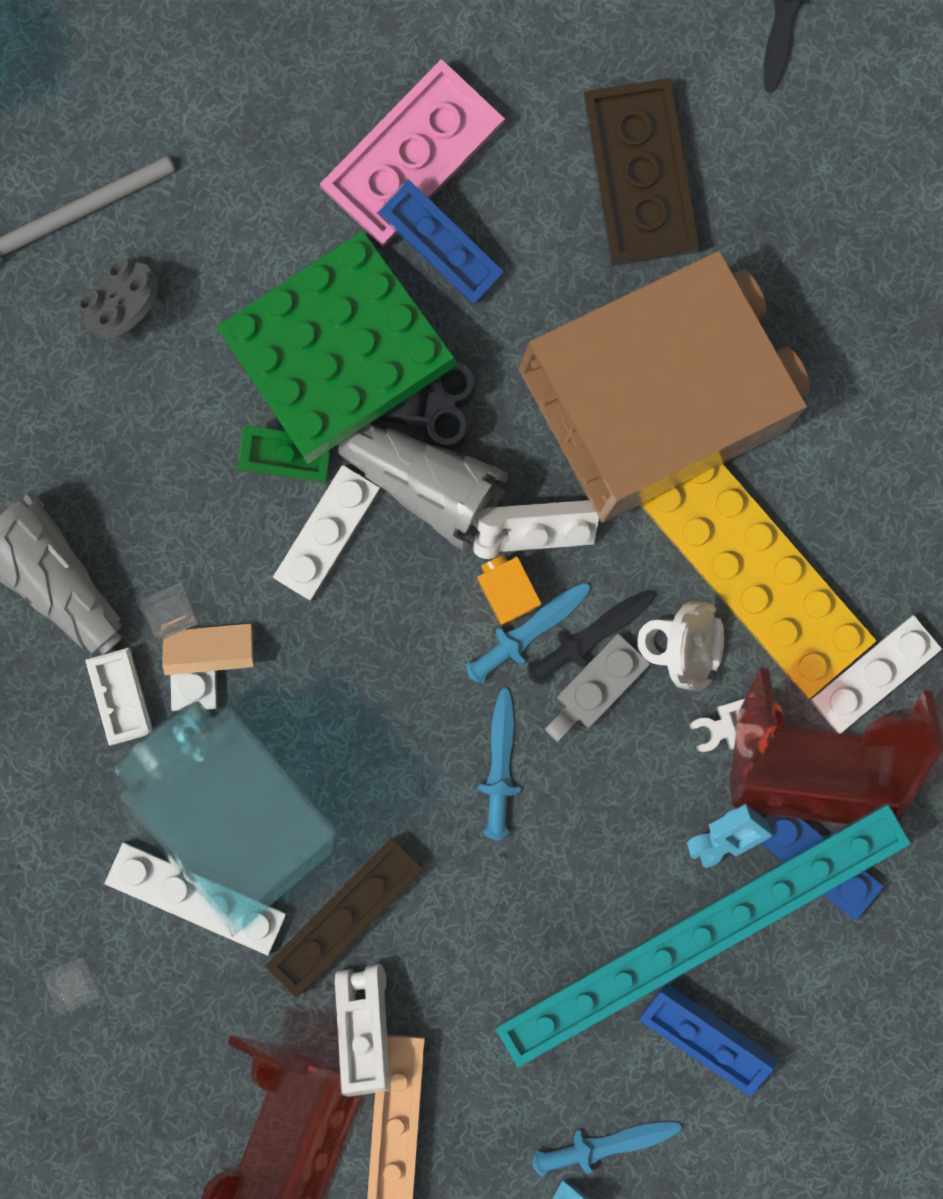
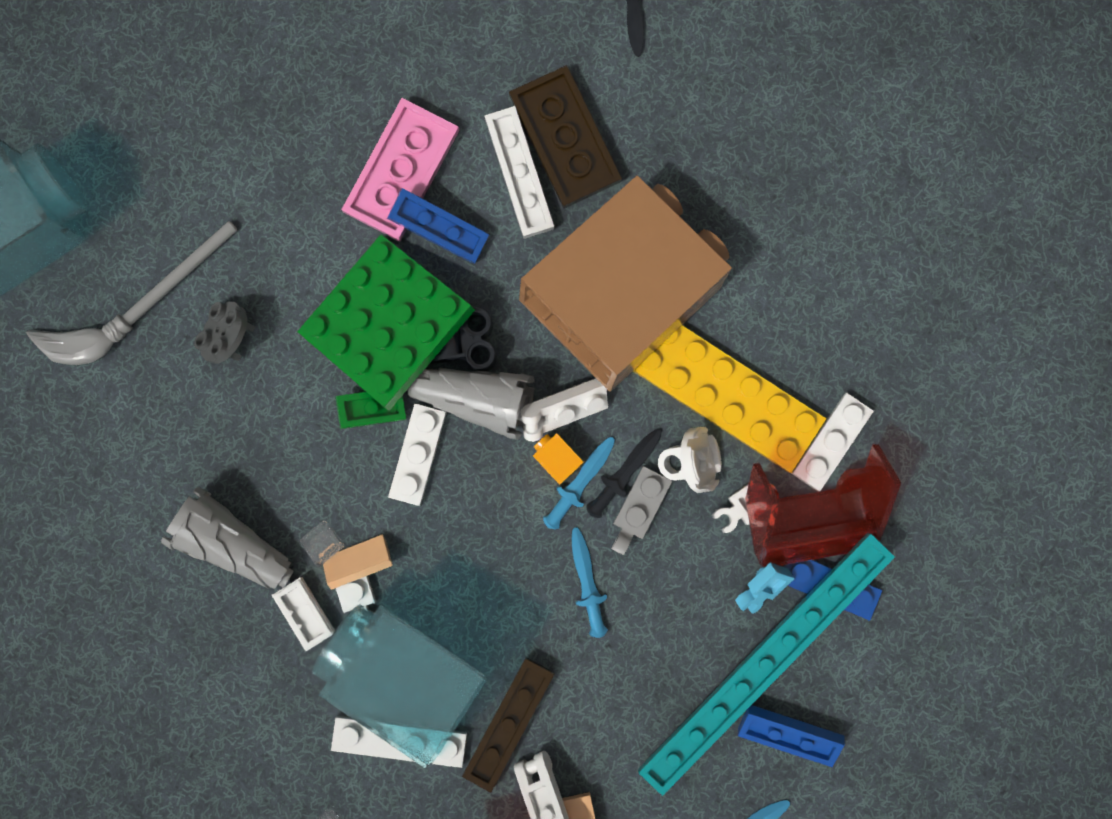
camera: 15 degrees left, 0 degrees up
(567, 201) = (519, 172): none -> white plate

